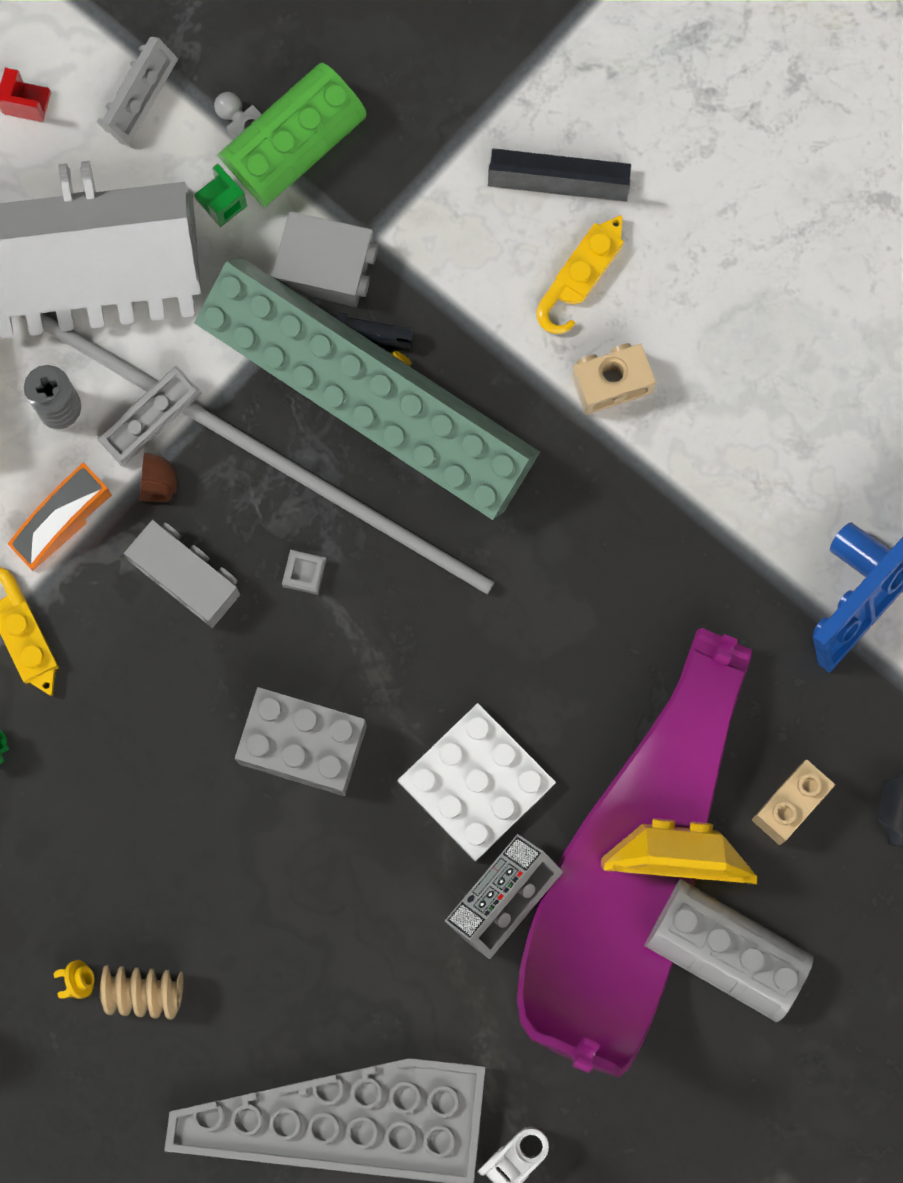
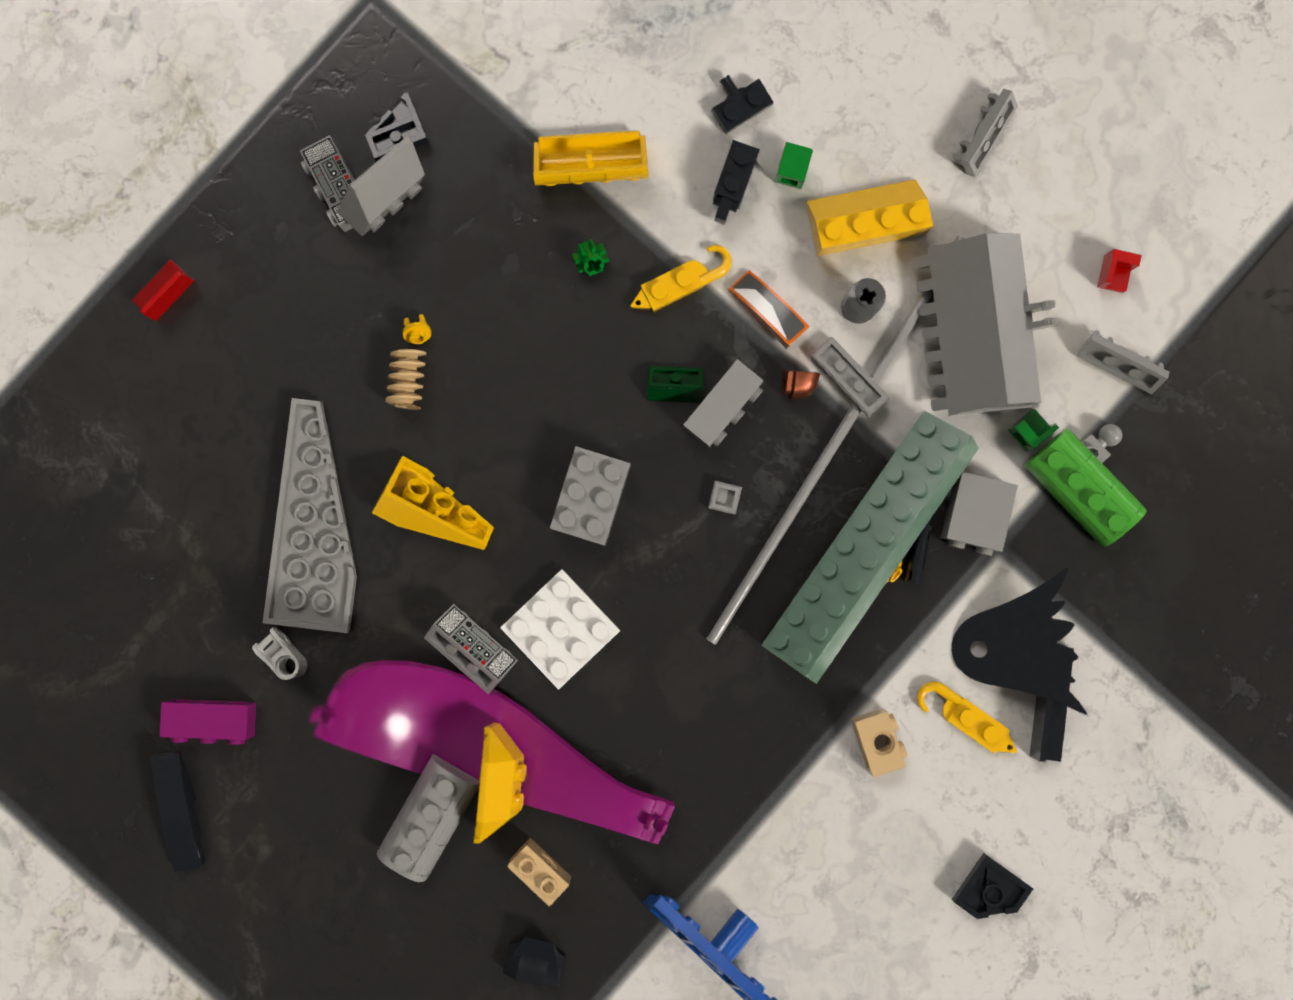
camera: 90 degrees right, 10 degrees up
(155, 636) = (675, 384): none -> dark green slope
(312, 970) = (422, 505): none -> yellow wedge
(488, 208) = (1021, 645): none -> black piece
(792, 244) = (991, 890): none -> black plate

